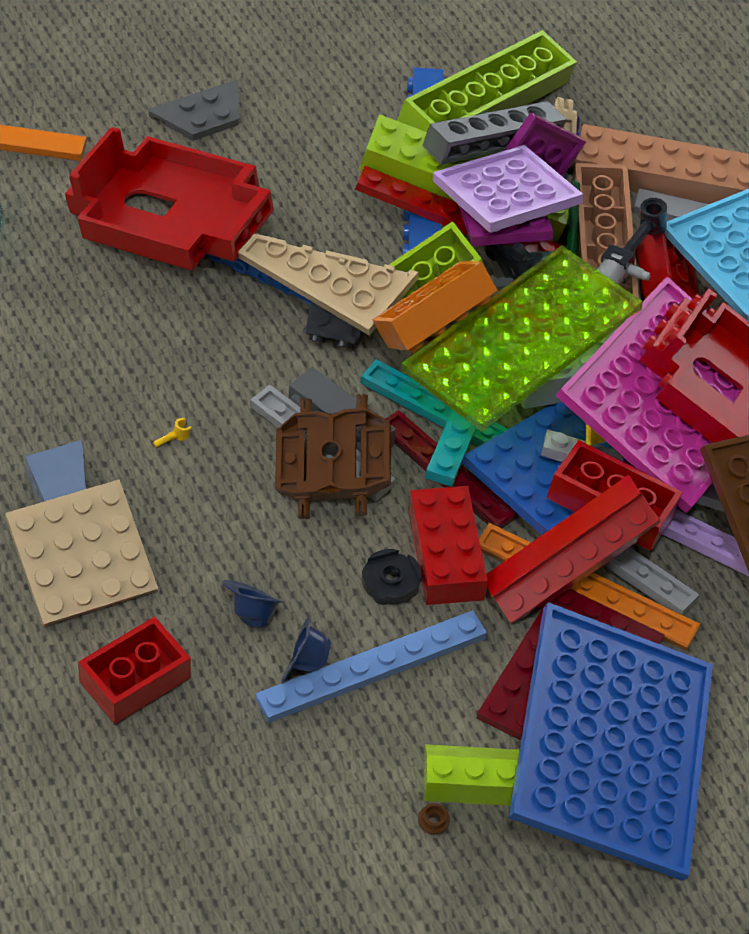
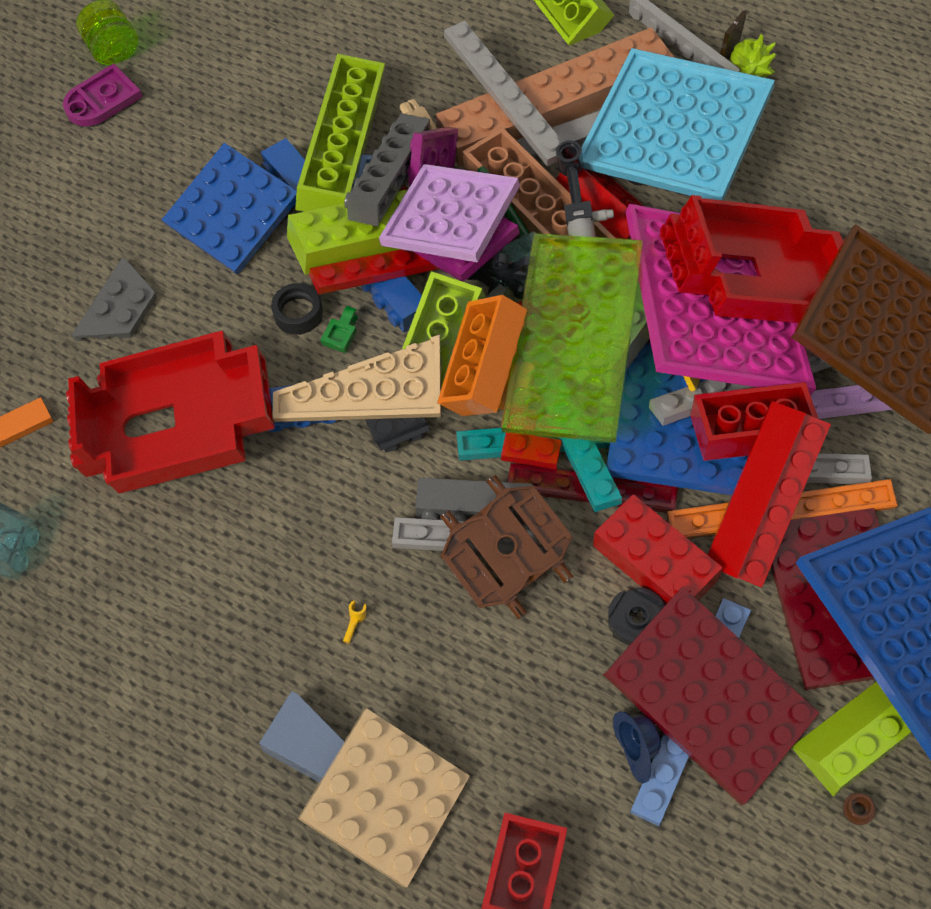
camera: 30 degrees left, 10 degrees up
(252, 604) = (557, 727): dark blue piece -> none
(336, 212) = (300, 325): none -> black tyre
(349, 93) = (231, 208): none -> blue plate
(354, 236) = (341, 333): none -> green plate
(392, 659) = (711, 695): none -> dark red plate
(420, 407) = (531, 450): none -> red plate
(654, 134) = (504, 91): none -> light grey plate

